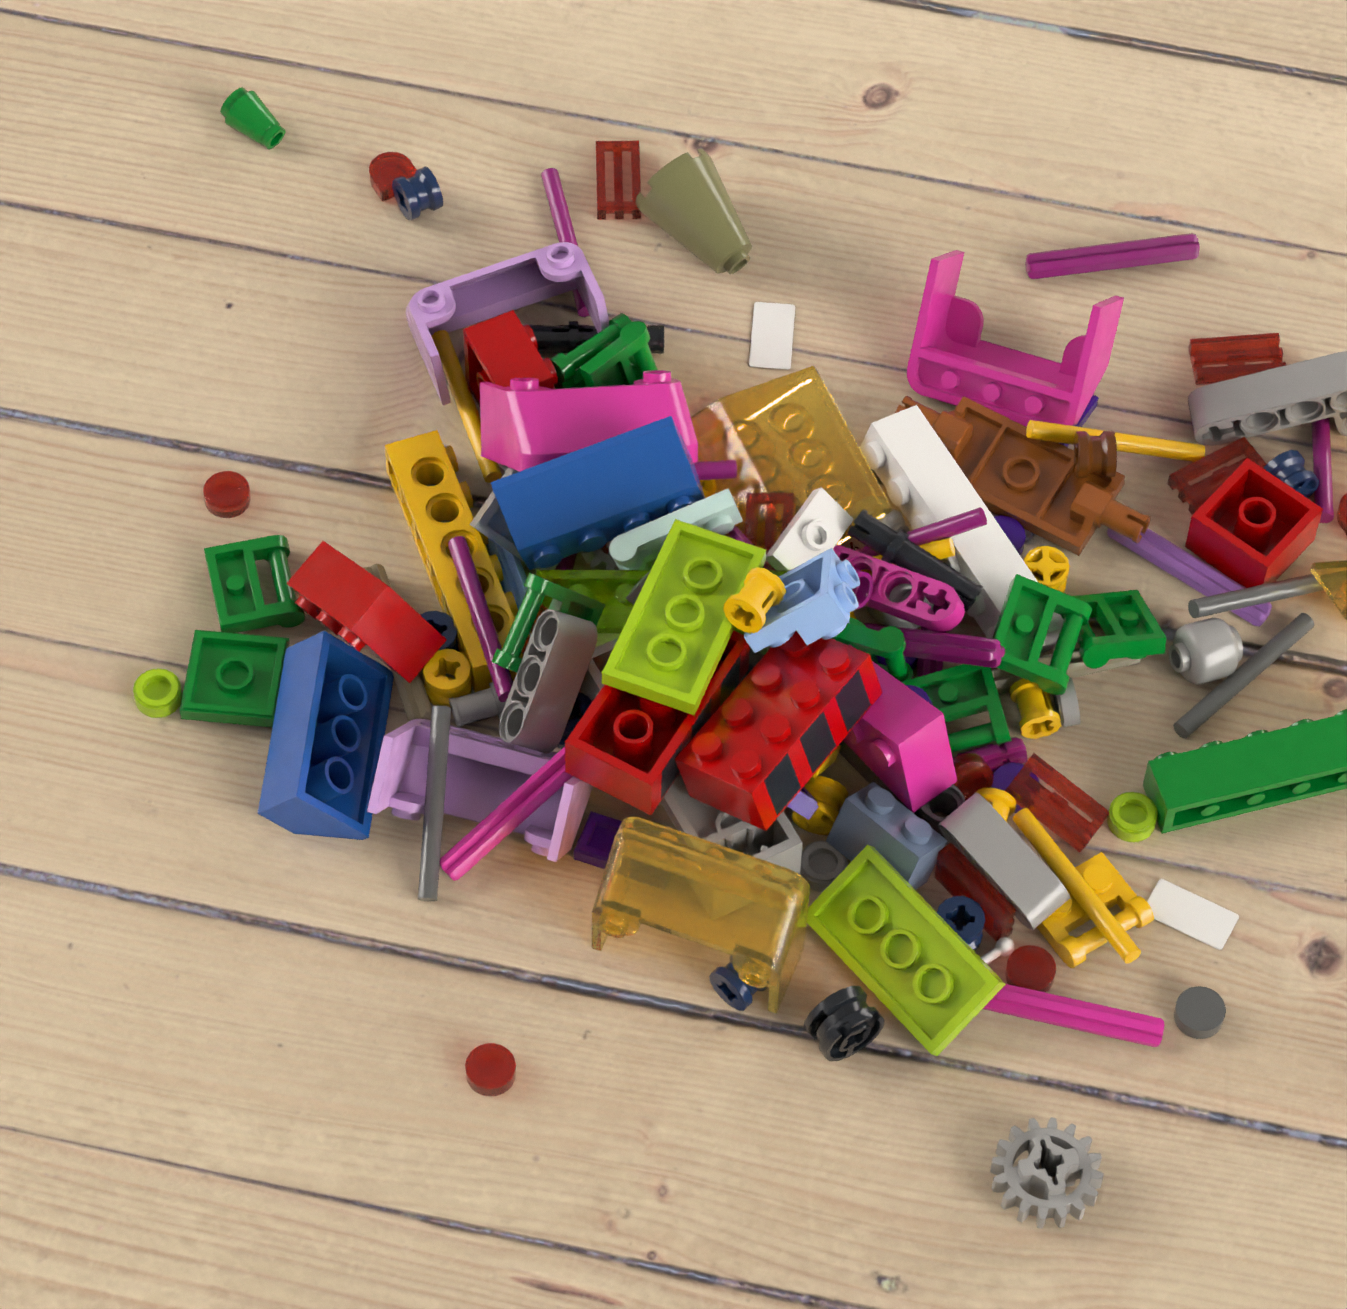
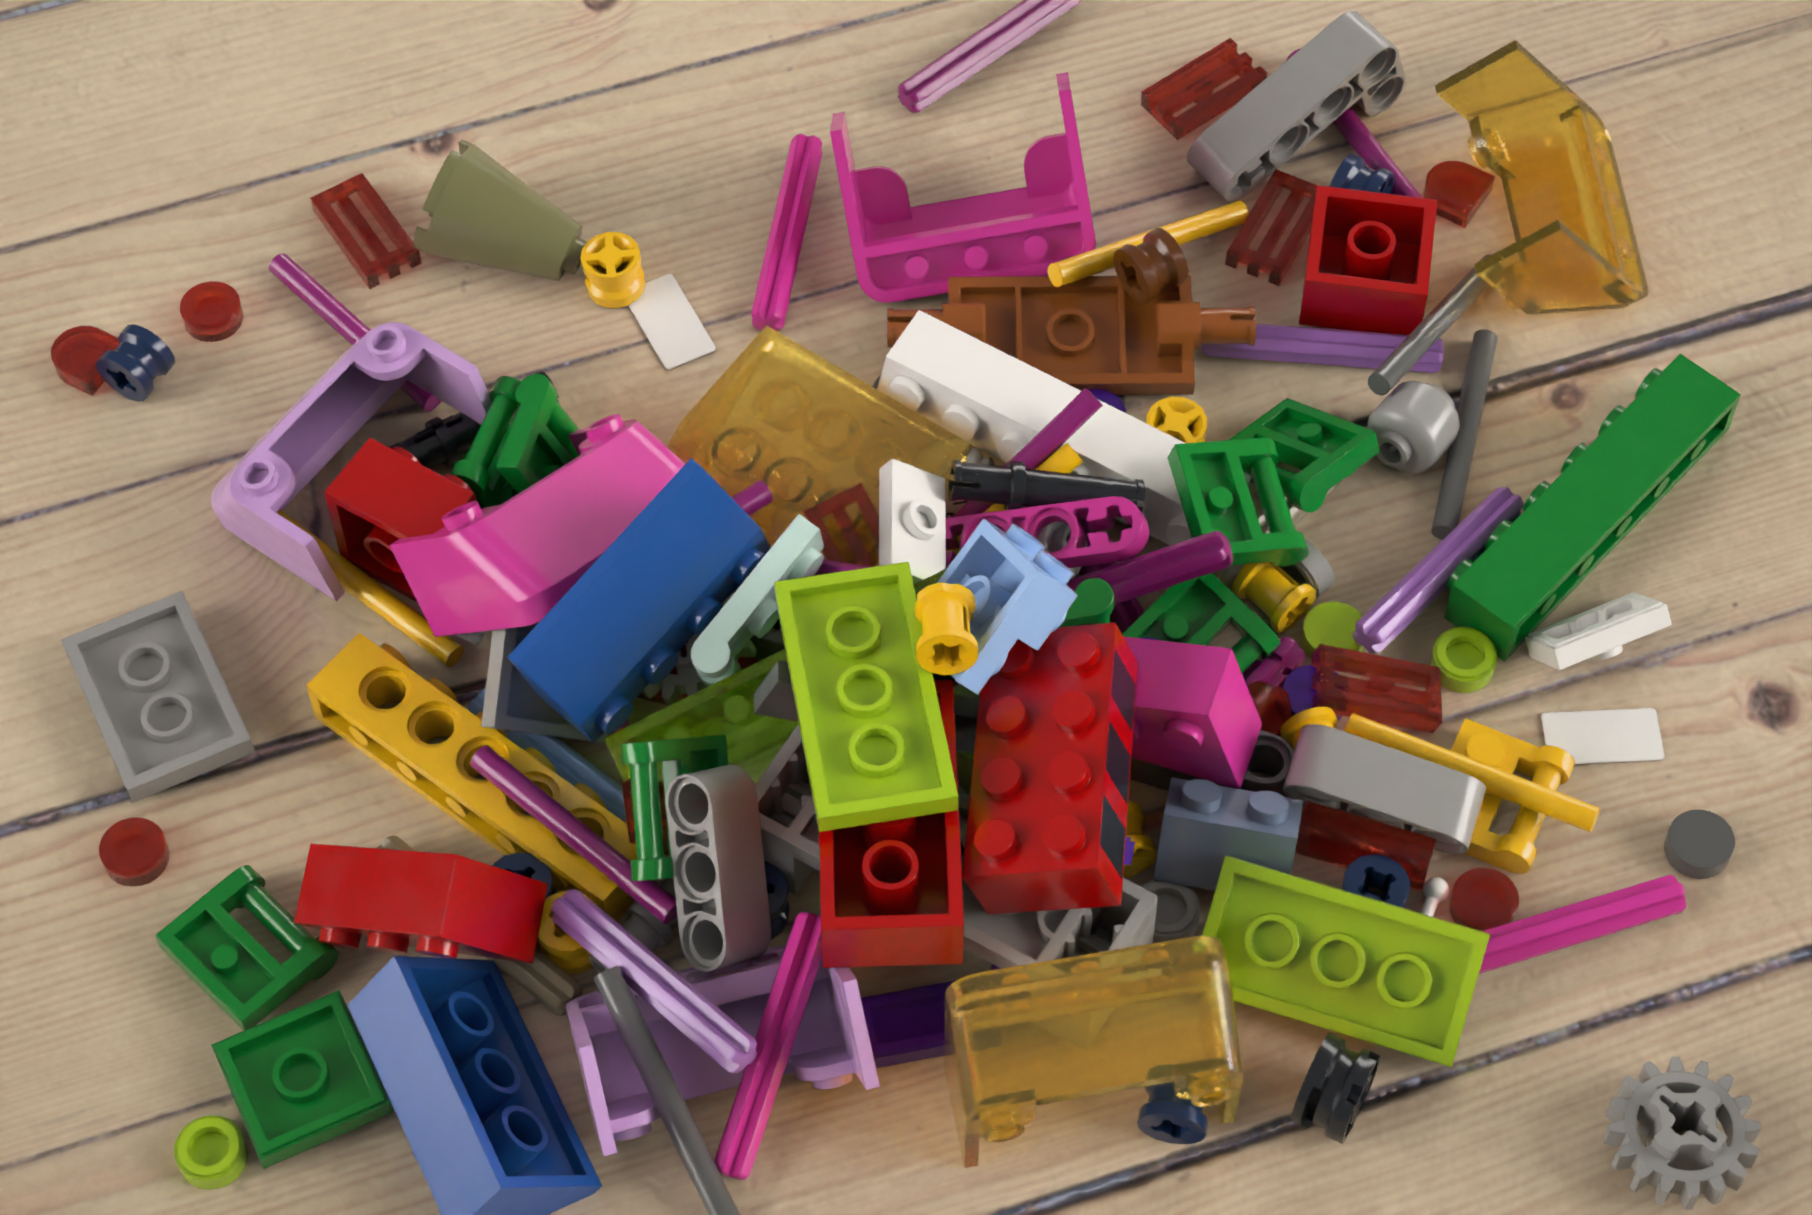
camera: 30 degrees left, 0 degrees up
(298, 407) = (157, 696): none -> light grey plate
(468, 729) = (655, 981): none -> medium lavender axle
(488, 184) = (211, 311): none -> clear red tile
(749, 273) = (601, 260): none -> yellow wheel
(878, 322) = (787, 232): none -> dark pink axle
(1061, 752) = (1330, 625): none -> lime tile
(1138, 752) = (1432, 573): none -> medium lavender axle
(1230, 845) = (1598, 631): none -> white plate

